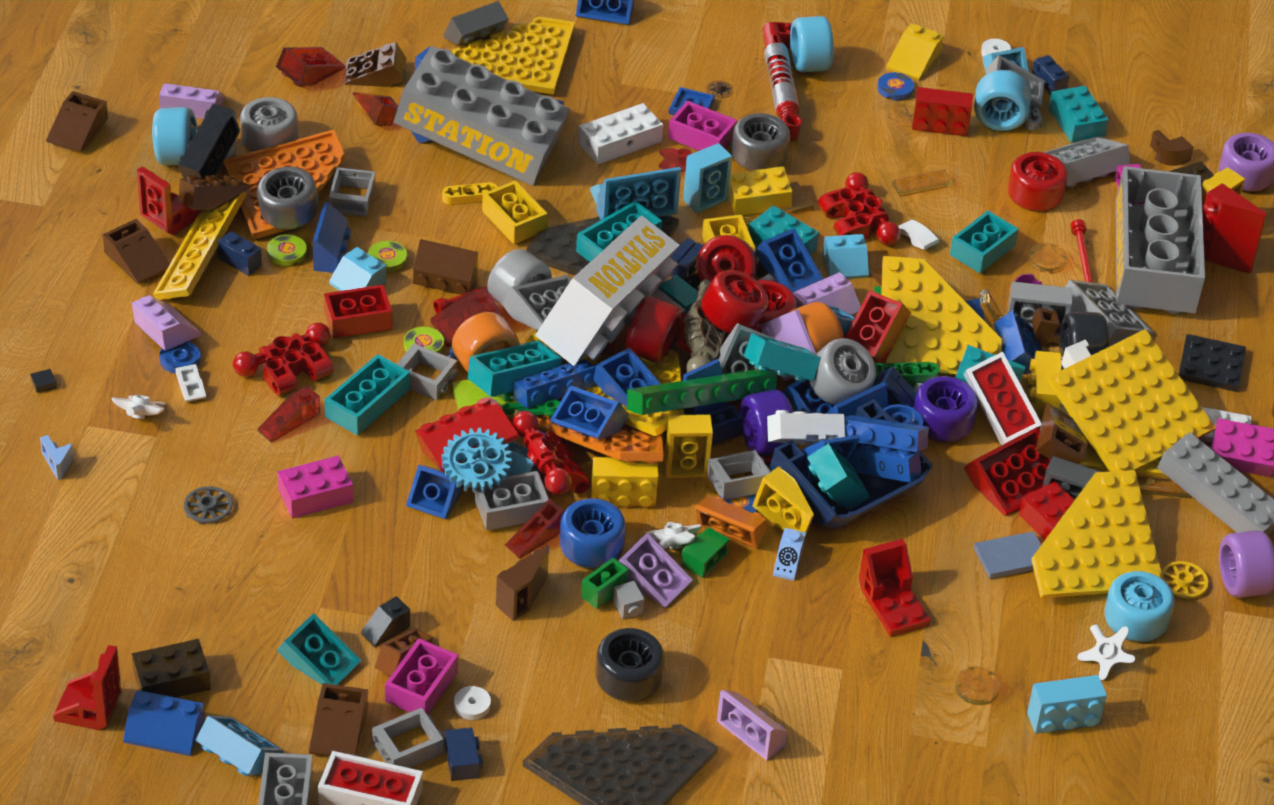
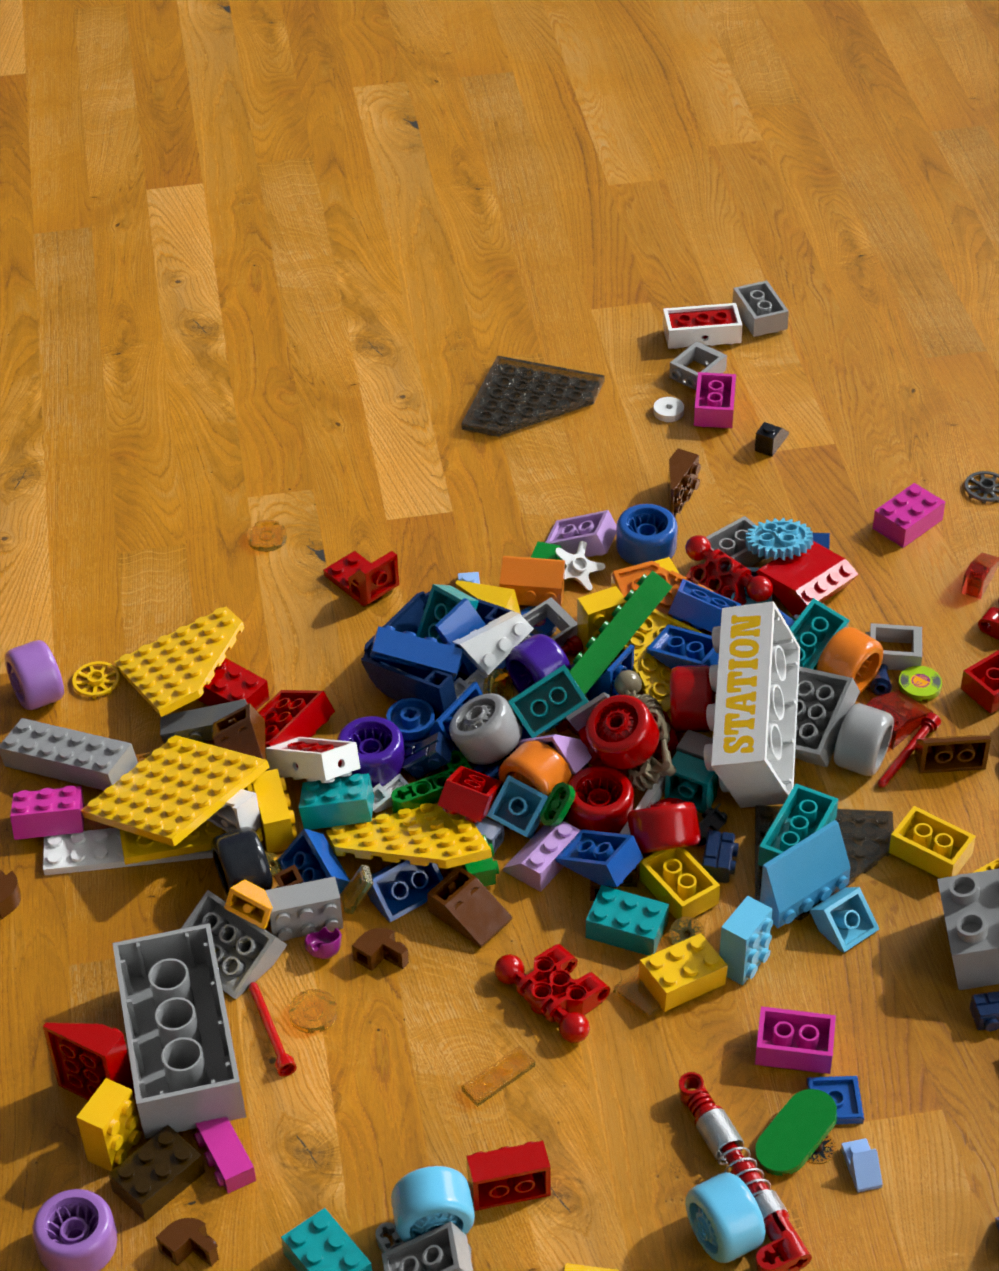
camera: 165 degrees right, 0 degrees up
(92, 697) = (941, 321): red bracket -> none
(163, 723) = (882, 331): blue slope -> none
(172, 669) = (904, 357): dark brown brick -> none
(235, 744) = (816, 331): slope -> none
(318, 652) = (809, 400): teal slope -> none
(338, 720) = (757, 364): reddish brown slope -> none
(367, 394) = (928, 599): teal brick -> none
(395, 650) = (744, 419): dark orange slope -> none
(462, 754) = (652, 369): dark blue brick -> none
(537, 530) = (699, 529): clear red slope -> none
(599, 585) = (616, 501): green brick -> none
(620, 133) = (888, 1004): white brick -> none
(628, 600) = (587, 504): light grey brick -> none
(629, 664) = (558, 447): black wheel -> none
(674, 158) = (806, 998): clear red plate -> none
(696, 68) = (862, 1165): none -> light blue slope
(731, 90) = (796, 1132): none -> green tile
(750, 724) = (442, 439): lavender slope -> none
(760, 142) = (713, 1034): flat silver wheel -> none
(804, 296) = (557, 804): none -> green plate
(846, 255) = (547, 923): medium azure slope -> none
(895, 86) = (591, 1233): blue tile -> none
(919, 234) = (476, 985): white slope -> none
(984, 241) = (392, 987): teal brick -> none
(989, 277) = (379, 945): none -> reddish brown brick
(1007, 554) = (266, 650): sand blue tile -> none
(1037, 181) = (351, 1100): red wheel -> none
(1066, 704) = (184, 521): medium azure brick -> none
(1085, 299) = (249, 903): none -> light orange slope
(1091, 158) = (304, 1178): light grey slope -> none
(1107, 650) = (158, 583): white animal -> none
(1140, 604) = (133, 618): medium azure wheel -> none
(1212, 362) = (91, 928): black plate -> none

